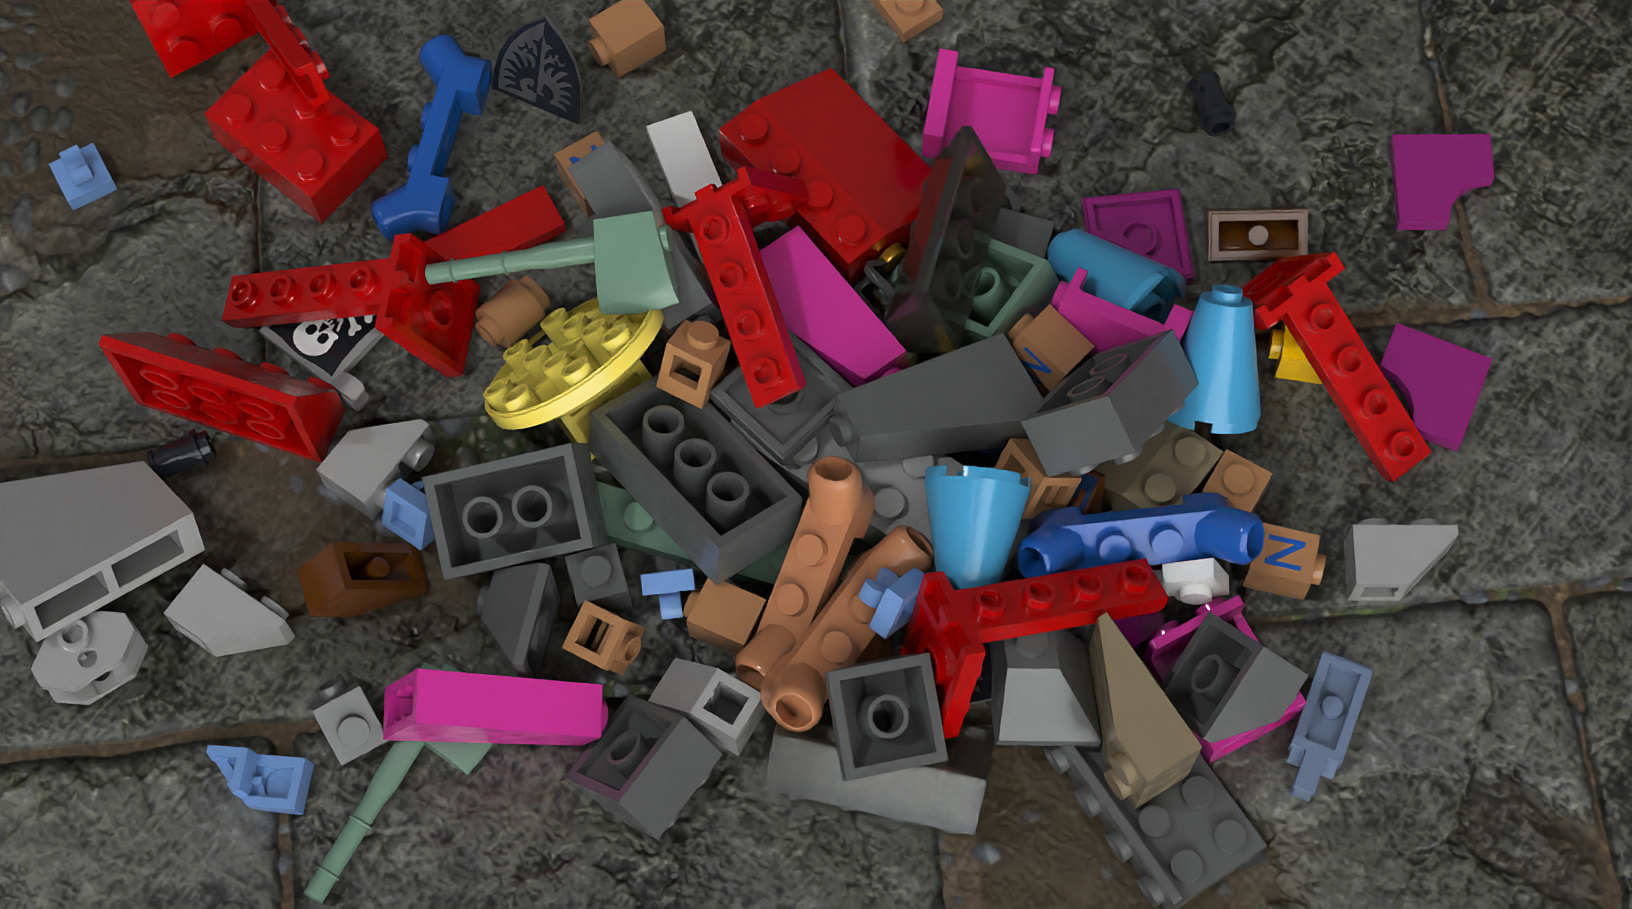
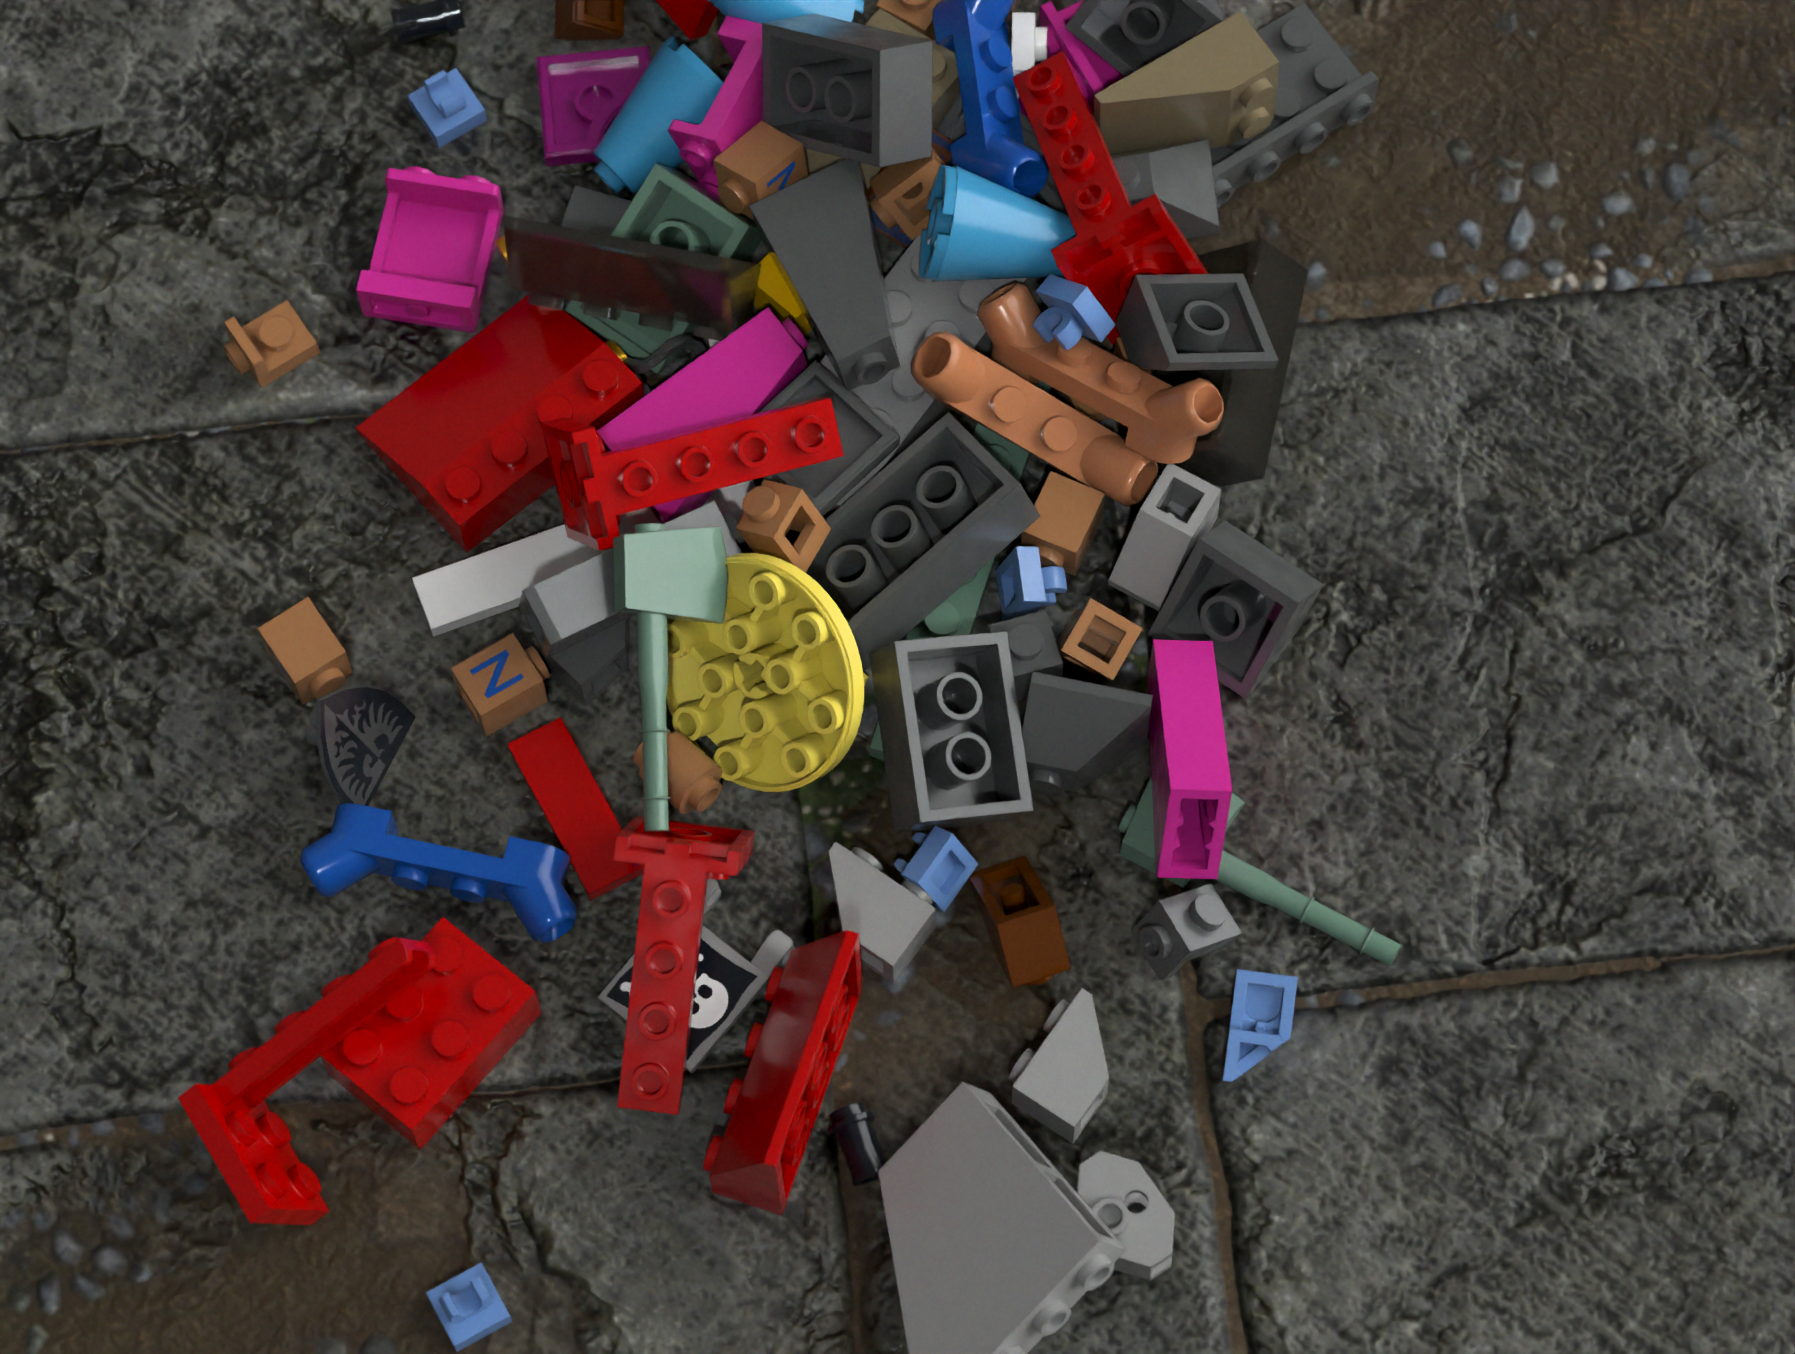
camera: 90 degrees left, 0 degrees up
(1130, 124) = (447, 107): none -> medium blue tile

